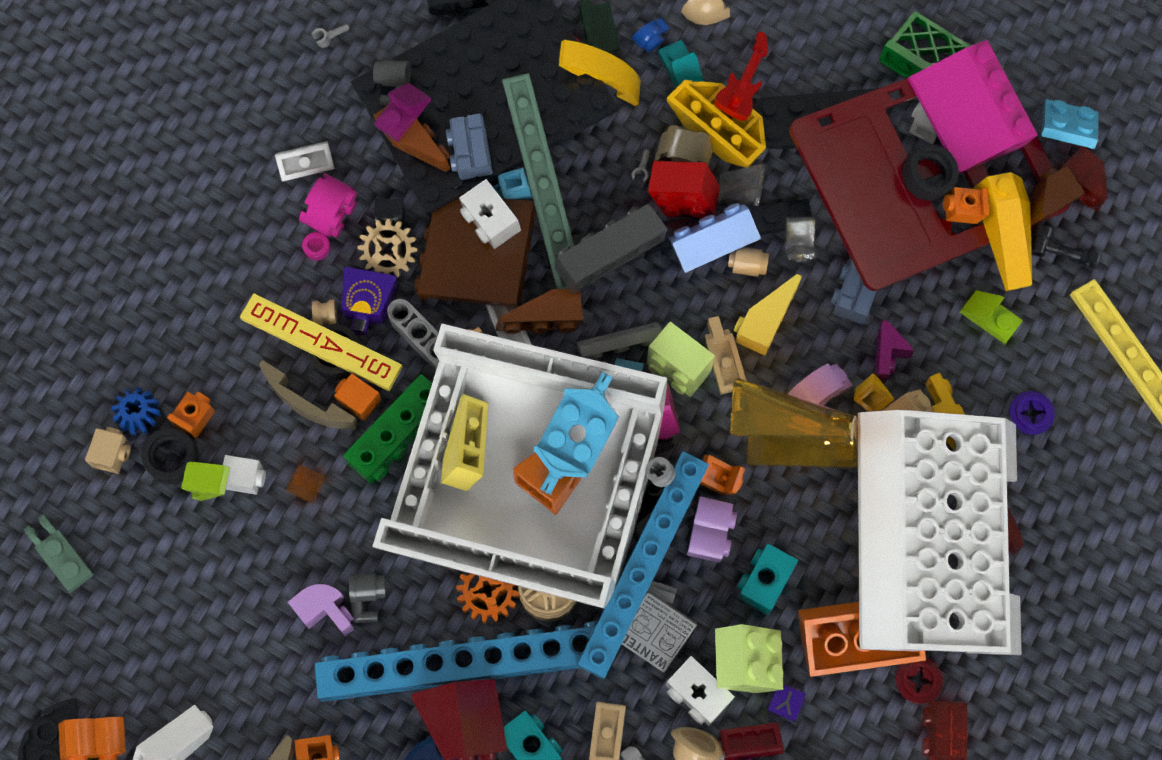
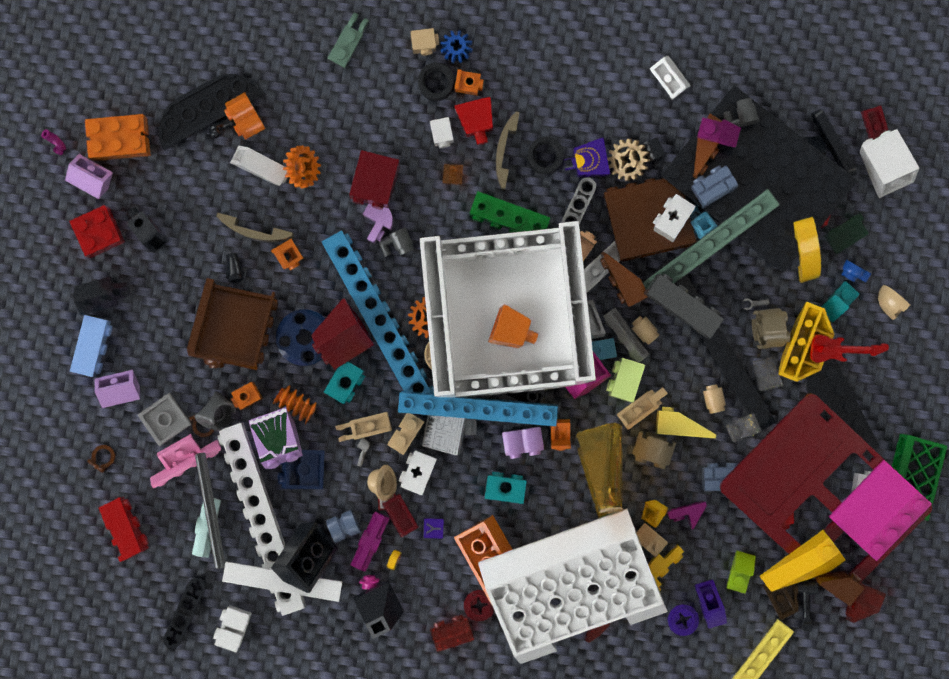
camera: 70 degrees right, 15 degrees up
(200, 684) = (301, 166): none -> orange gear
(205, 480) = (427, 112): lime slope -> none
(244, 422) = (476, 118): none -> red torso
(264, 586) = (374, 180): none -> dark red slope
(316, 246) = (613, 111): dark pink tile -> none
(319, 32) = (767, 53): light grey hand -> none
(321, 342) = (546, 144): light yellow tile -> none
(325, 312) = (568, 137): tan wheel -> none
(328, 205) = (641, 108): dark pink brick -> none
(357, 397) = (520, 182): orange brick -> none
(466, 444) = (510, 267): light yellow slope -> none
(556, 446) = (524, 330): medium azure plate -> none
(622, 313) = (645, 329): none -> tan brick
(645, 695) = (402, 439): none -> tan piece
(654, 465) = (537, 391): light grey bush -> none
(684, 188) = (745, 338): red brick -> none
(714, 237) = (720, 370): light blue brick -> none
(748, 659) = (448, 495): yellowish green brick -> none
(786, 359) = (653, 449): none -> dark tan brick
(822, 385) = (643, 477): lavender brick -> none
(945, 162) = (829, 508): black tyre -> none
(966, 205) = (809, 536): orange brick -> none
(1022, 368) = (711, 604): none -> dark purple slope
(1048, 276) = (783, 600): none -> dark brown wing
(1070, 123) = (900, 580): medium azure plate -> none

